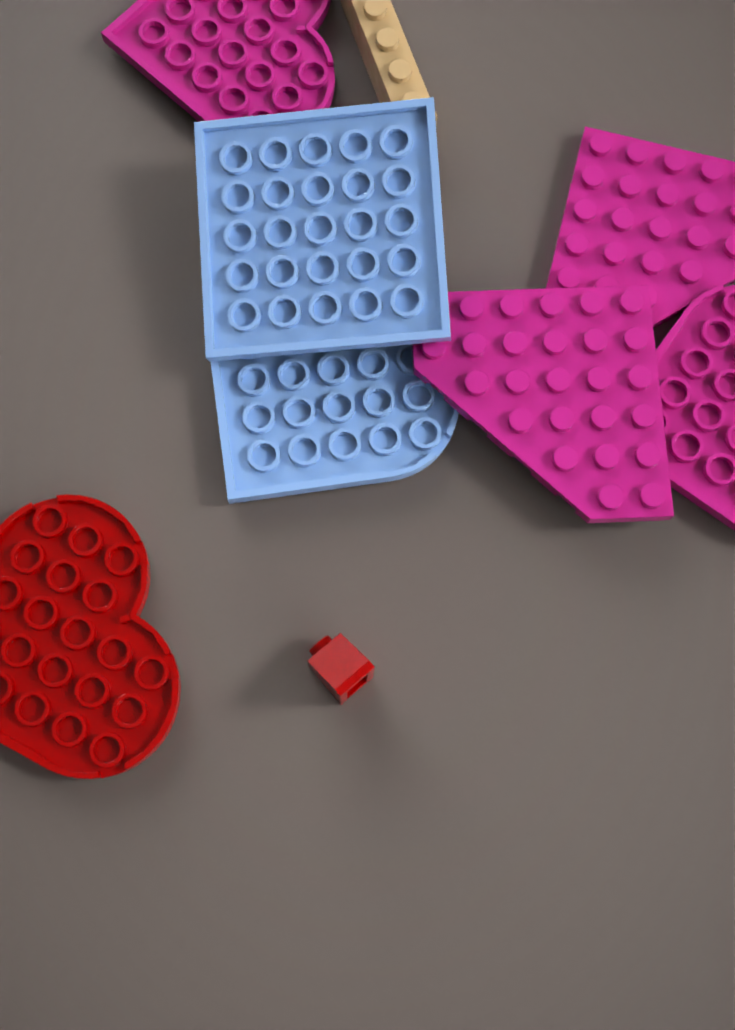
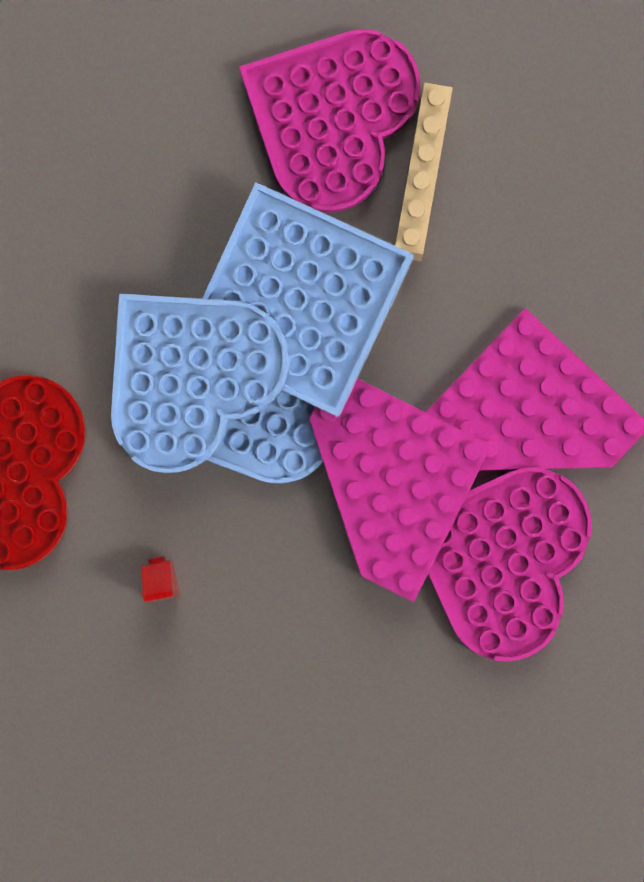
camera: 35 degrees right, 10 degrees up
(232, 387) = (186, 372): none -> light blue plate

